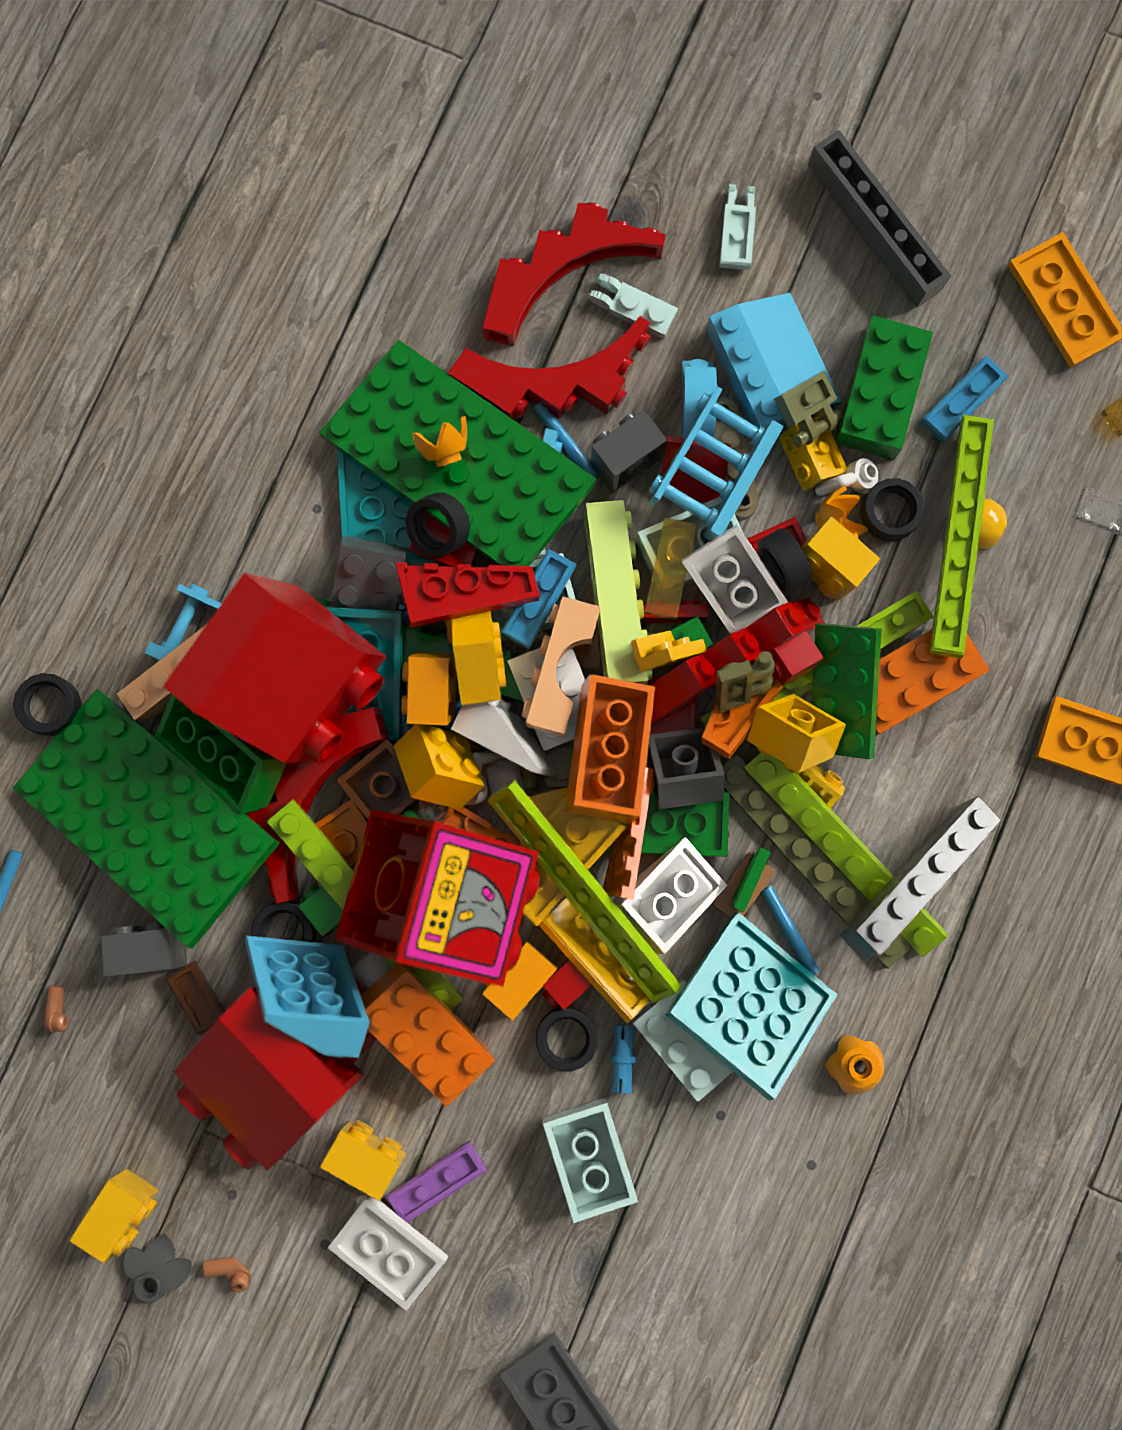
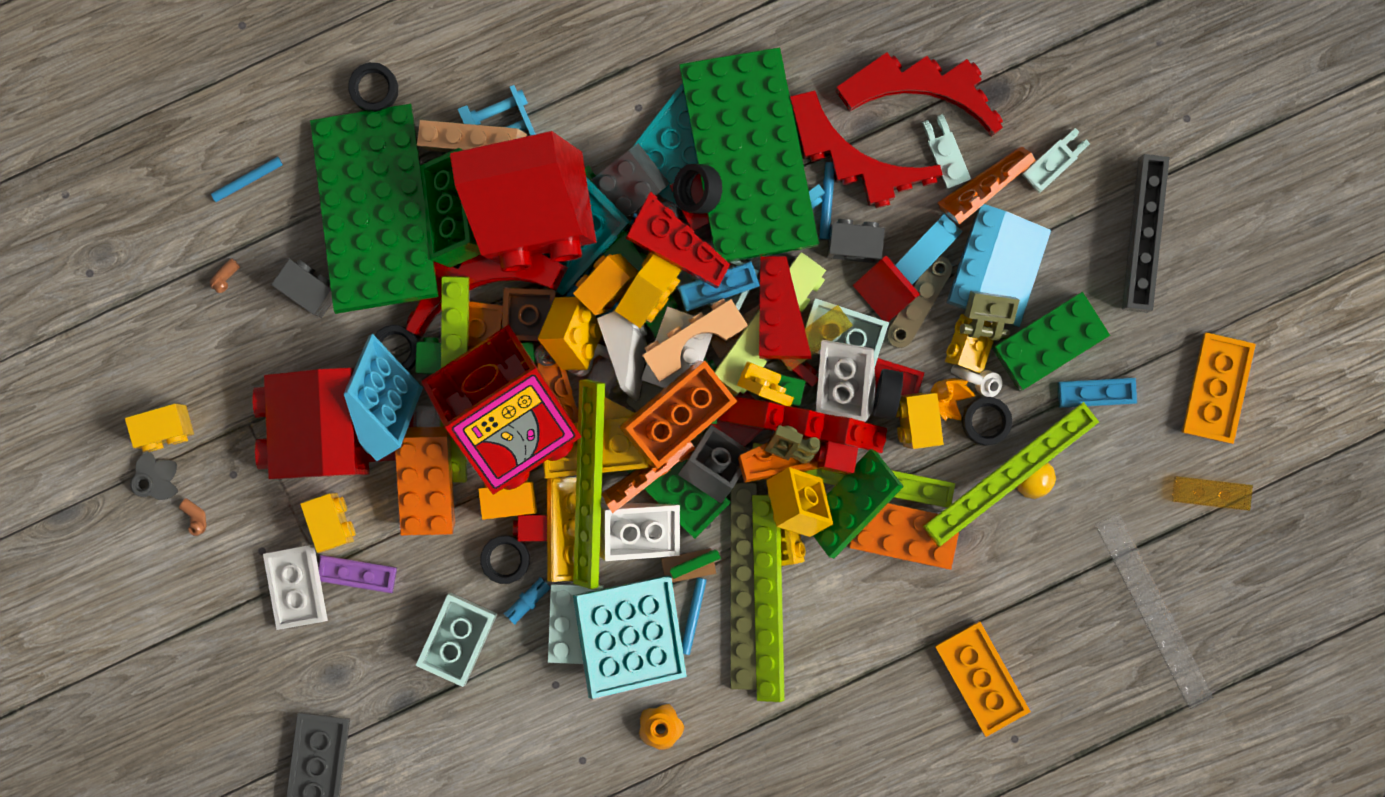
camera: 45 degrees right, 5 degrees up
(195, 997) = (311, 342): reddish brown plate -> none
(448, 444) = (744, 146): light orange piece -> none
(623, 576) = (781, 322): none -> red wing
(696, 307) = (980, 189): none -> orange wing
(746, 465) = (915, 316): medium azure fence -> none
(920, 878) = (795, 652): brick -> none

